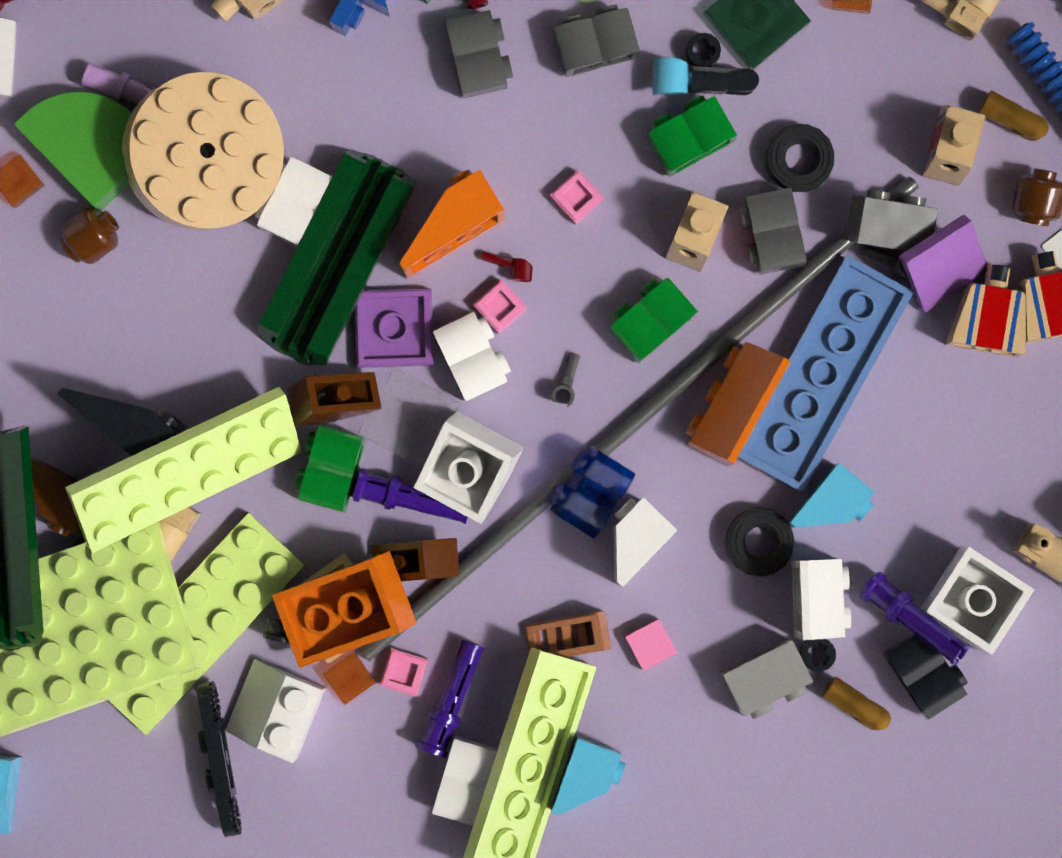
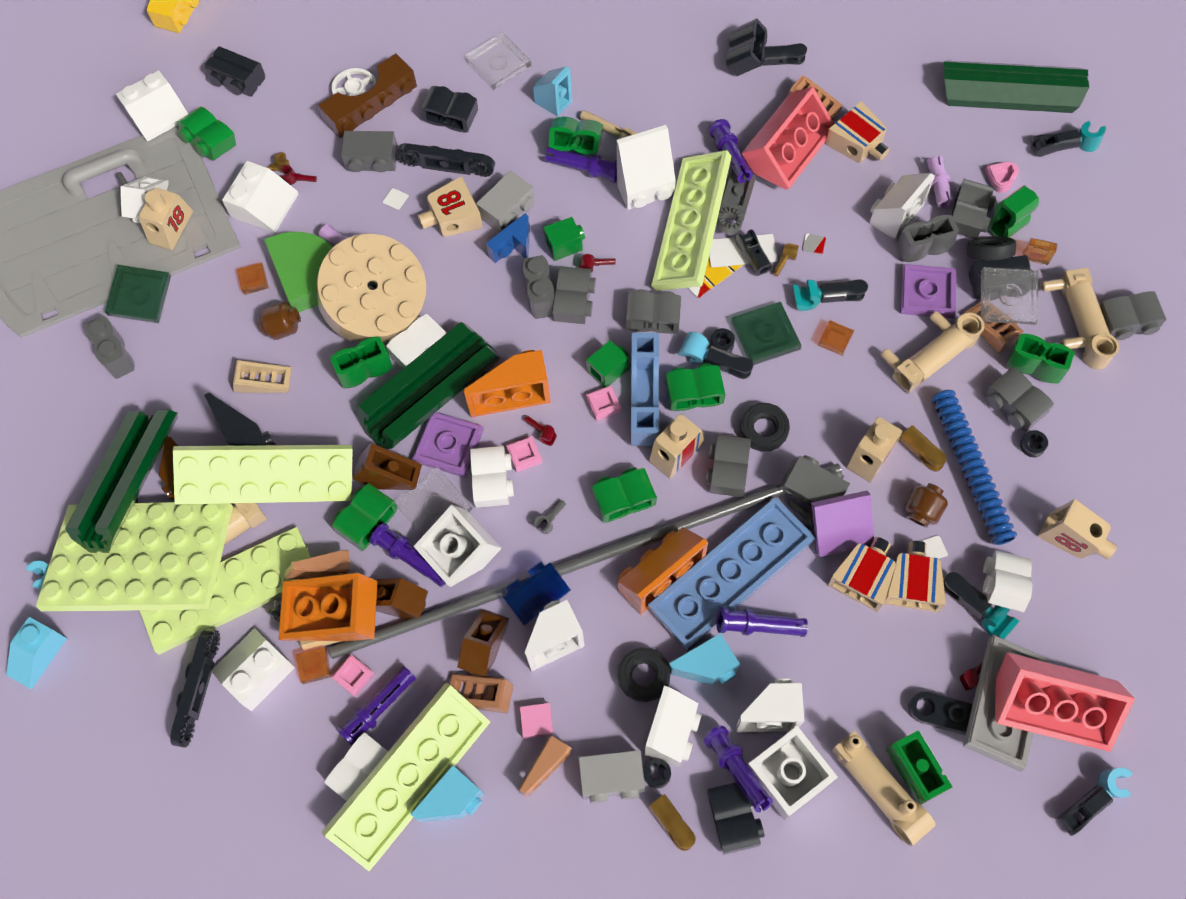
camera: 25 degrees right, 20 degrees down
(98, 311) = (252, 386): none -> tan slope
(241, 252) = (364, 361): none -> green brick
(318, 550) = (320, 566): none -> nougat slope
(421, 52) = (539, 286): none -> dark grey brick
(550, 575) = (482, 643): none -> reddish brown slope
(564, 140) = (608, 363): none -> green brick
(627, 164) = (645, 389): none -> medium blue arch
(685, 687) = (548, 760): none -> nougat slope
(867, 434) = (749, 622): none -> dark purple pin
(933, 533) = (774, 710): none -> white slope

